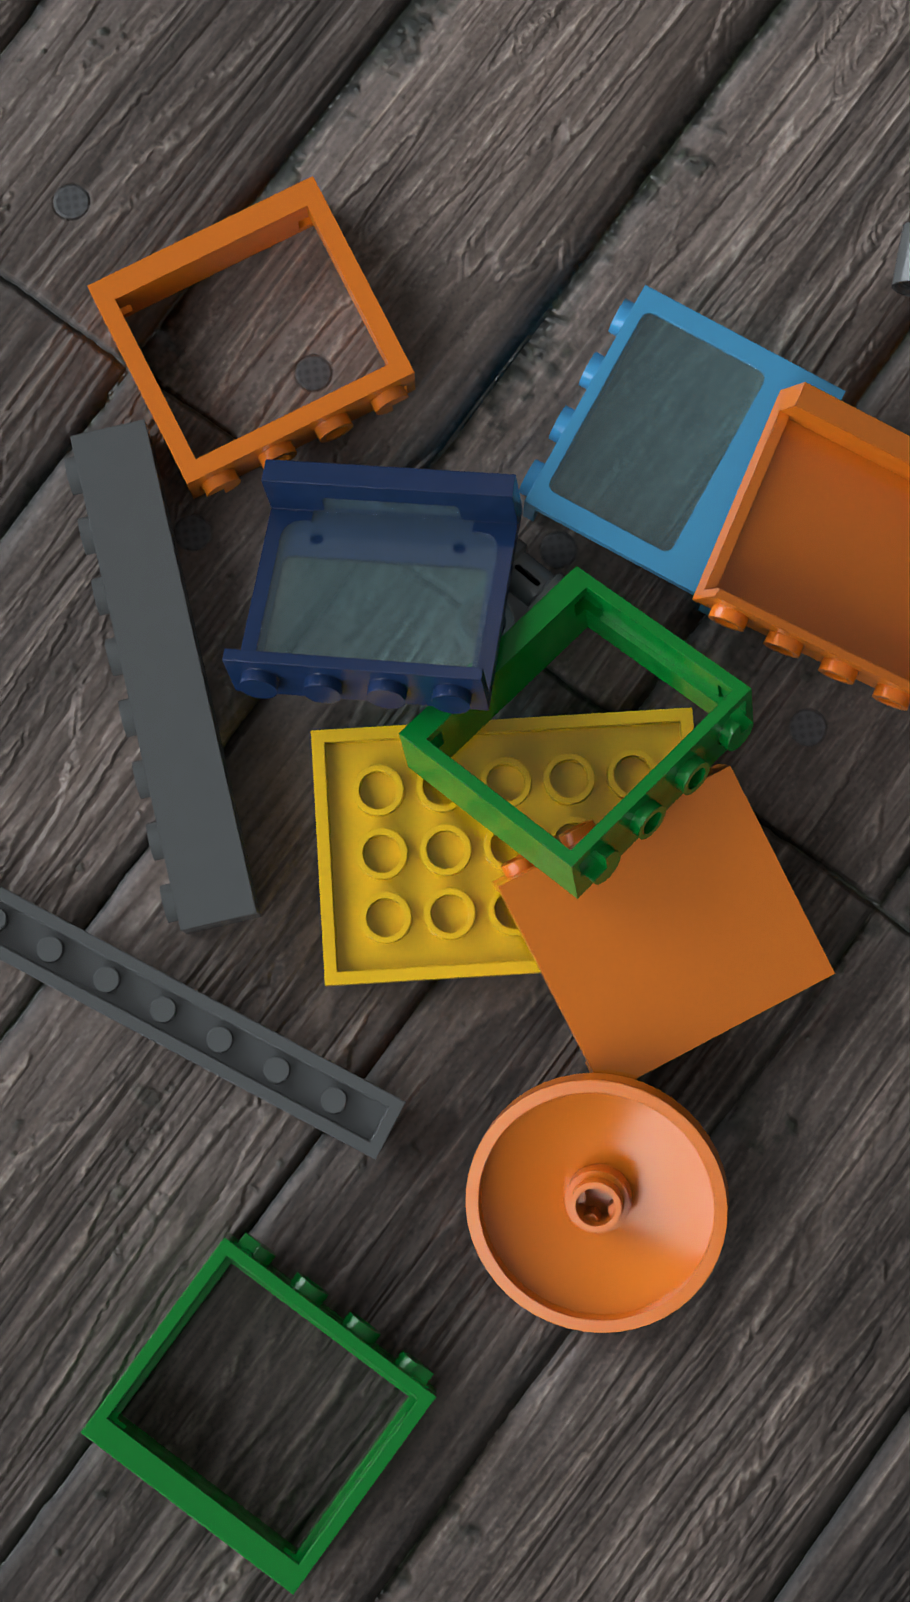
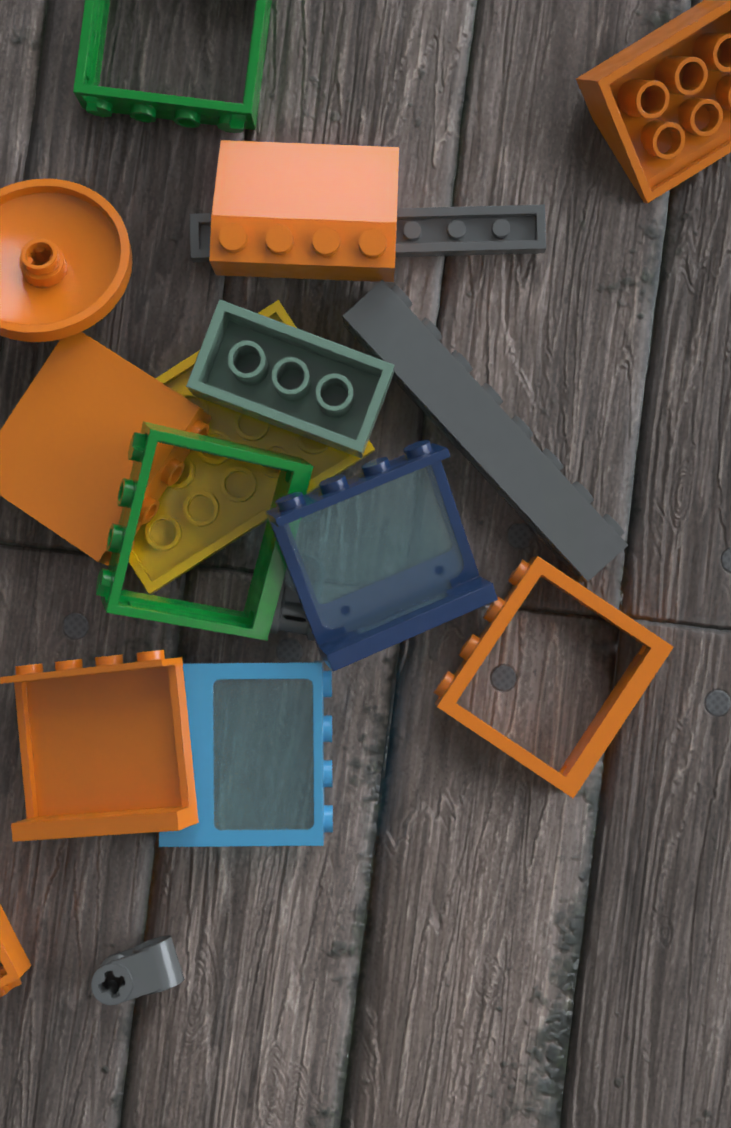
camera: 150 degrees right, 5 degrees up
(222, 1074) = (305, 211): none -> orange slope
(365, 858) = (290, 378): none -> sand green brick

